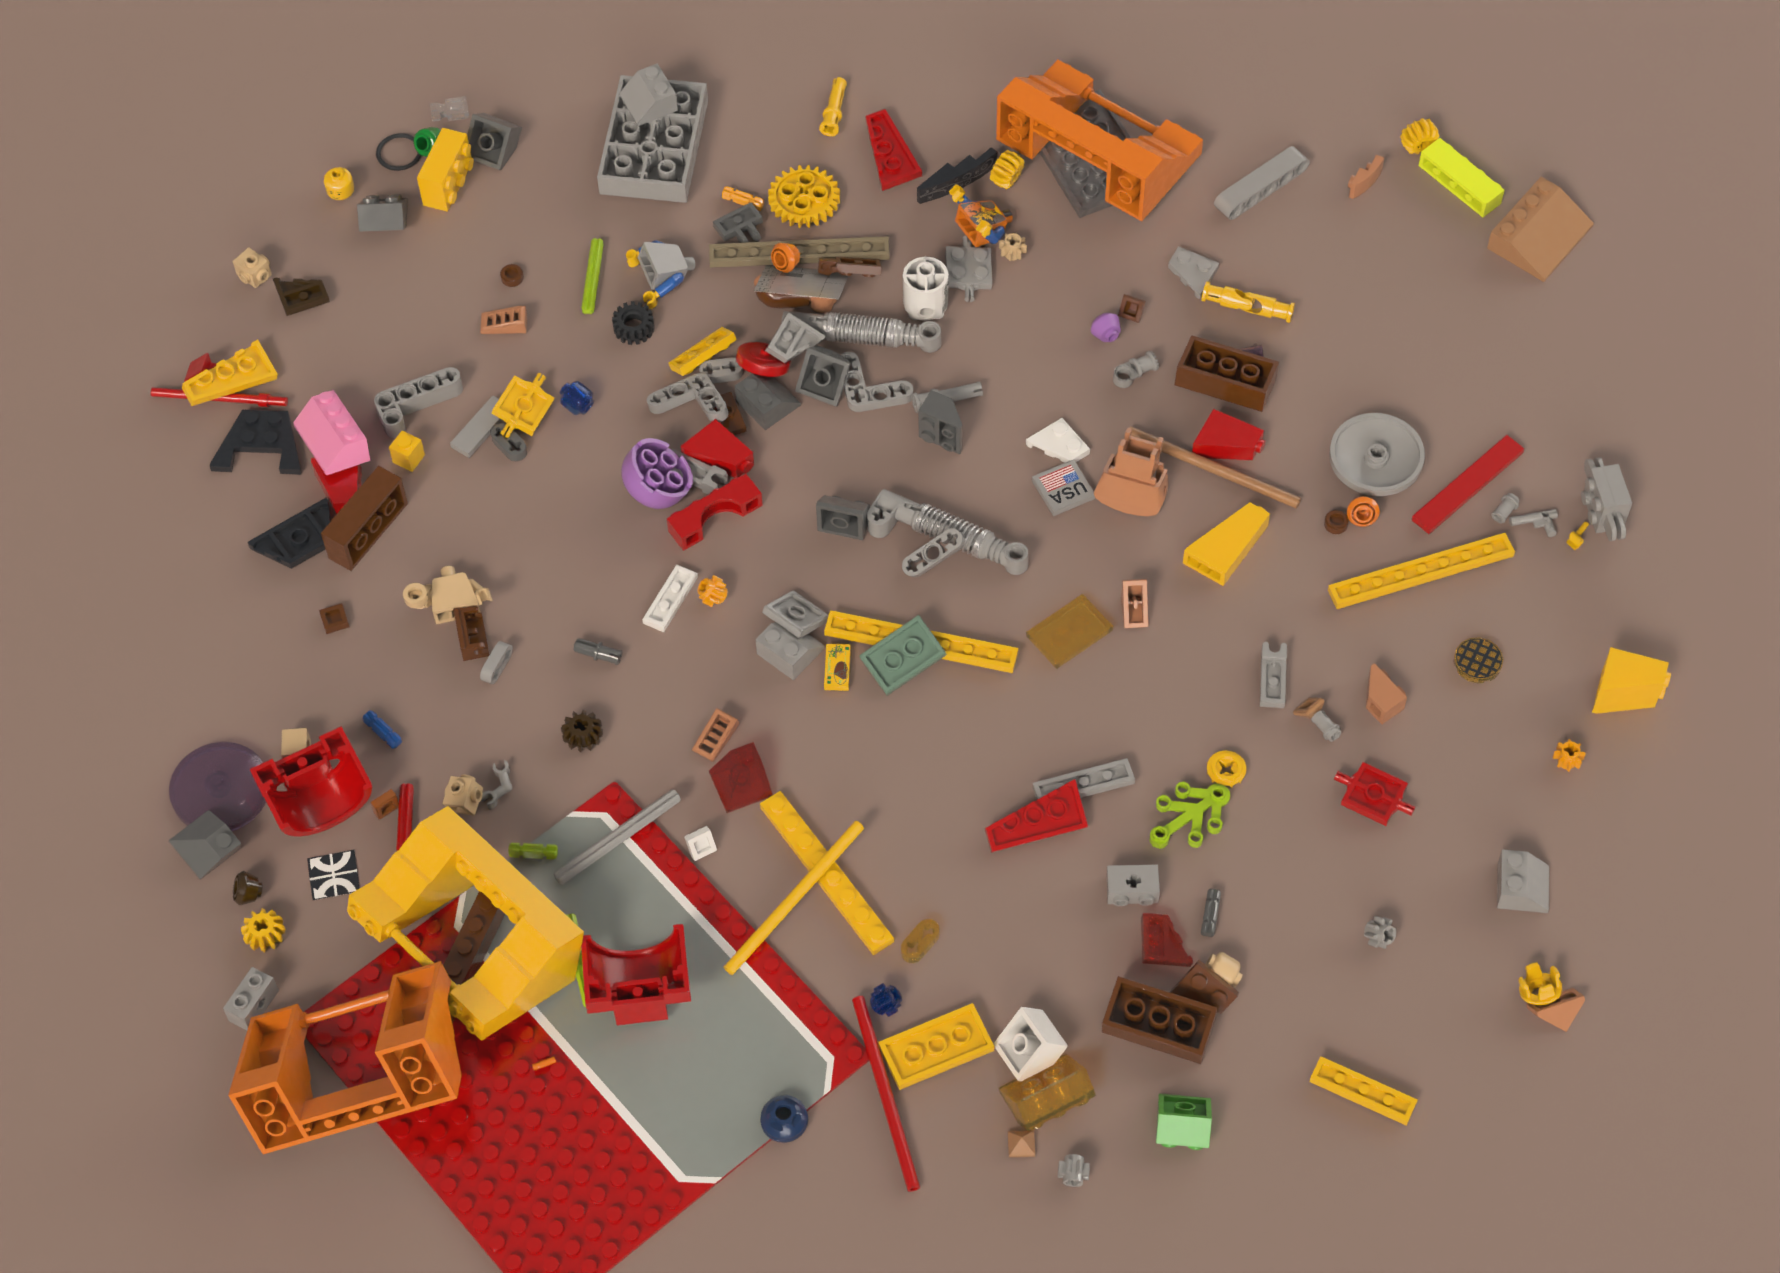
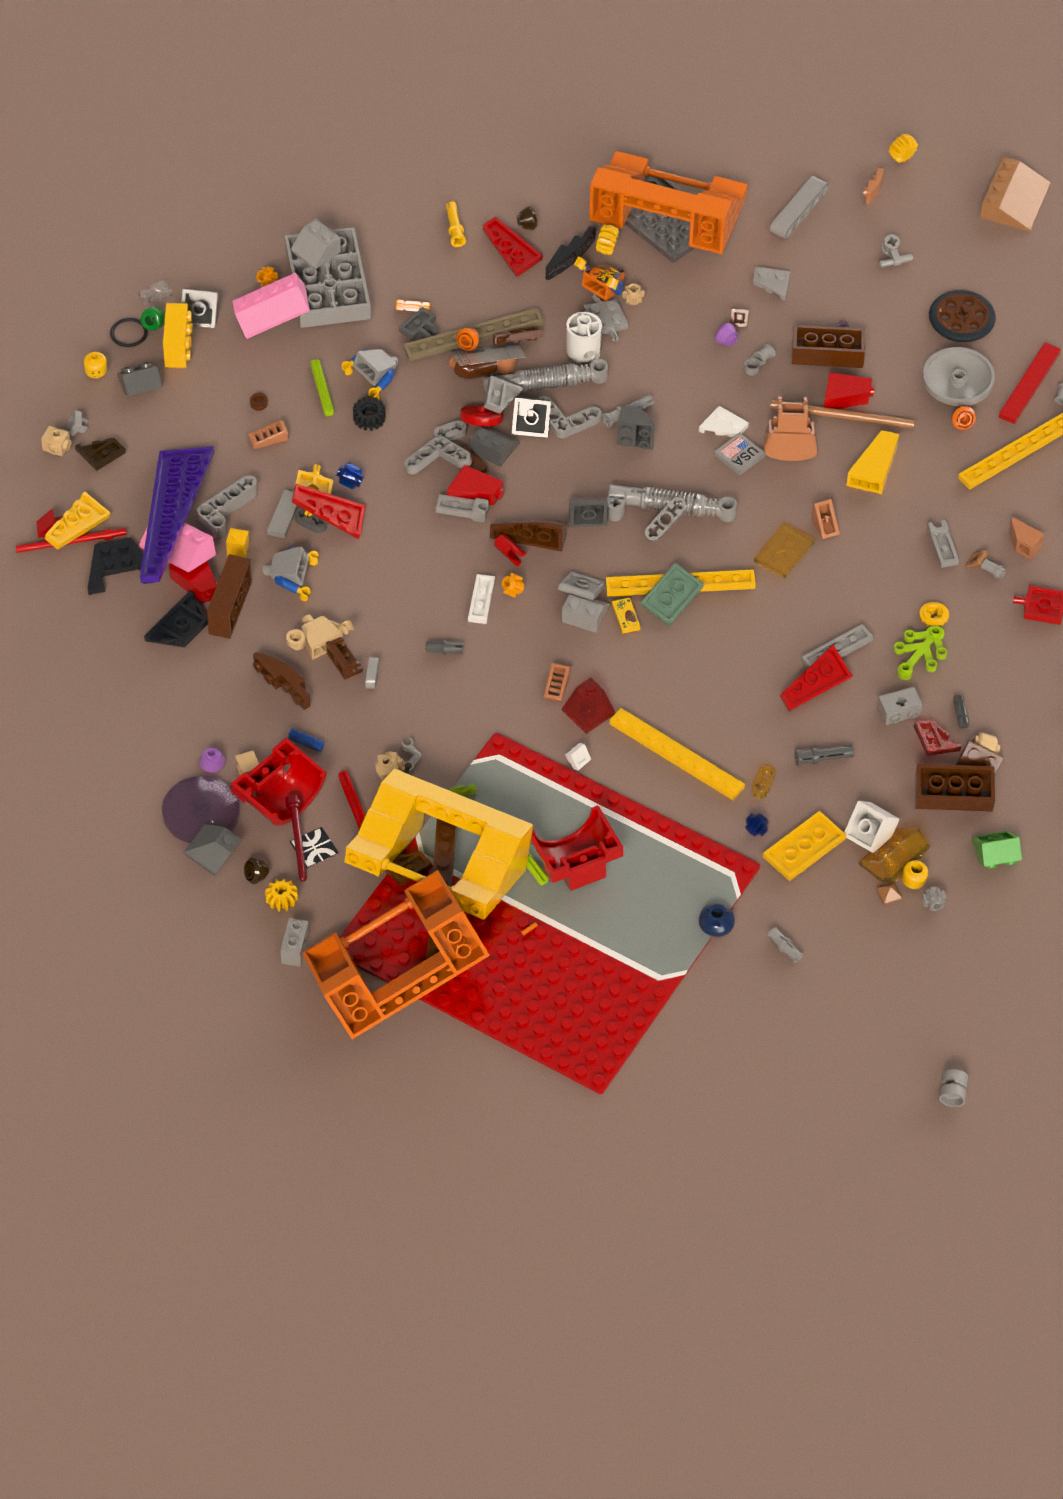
camera: 20 degrees left, 5 degrees down
(259, 726) = (212, 760): none -> medium lavender cone
(285, 251) = (76, 423): none -> light grey tile
(326, 812) = (293, 804): none -> dark red piece
(334, 618) = (234, 673): reddish brown tile -> none
(356, 364) = (175, 489): none -> dark purple wing
(385, 804) = (333, 788): dark orange tile -> none
(386, 639) = (282, 675): none -> reddish brown slope
(430, 935) = (414, 861): none -> reddish brown wing
(453, 499) = (289, 569): none -> light grey torso
(535, 437) = (335, 510): none -> red wing
(569, 158) = (271, 305): none -> bright pink slope
(582, 730) = (457, 703): dark brown gear -> none
(584, 121) = (266, 276): none -> light orange gear
(617, 836) = (517, 766): light grey axle -> none
(649, 474) = (431, 515): medium lavender cylinder -> none
(702, 351) = (431, 421): yellow plate -> none
(729, 542) = (509, 549): none -> red hinge
(737, 496) = (474, 544): red arch -> none
(770, 530) = (541, 533): none -> reddish brown wedge
(793, 898) = (663, 774): yellow piece -> none
(804, 196) = (460, 293): yellow gear -> none
(857, 1179) = (785, 945): none -> light grey pin
(886, 1094) = (781, 885): red piece -> none
(922, 120) = (527, 218): none -> dark brown cone
(997, 923) = (815, 755): none -> dark grey pin
(1063, 1122) = (914, 874): none -> yellow head
(1235, 299) = (812, 293): yellow piece -> none
(1336, 522) = (945, 431): reddish brown tile -> none
(1357, 278) = (889, 248): none -> light grey piece
(1411, 398) = (958, 298): none -> wedge
(1461, 177) = (943, 171): neon yellow brick -> none

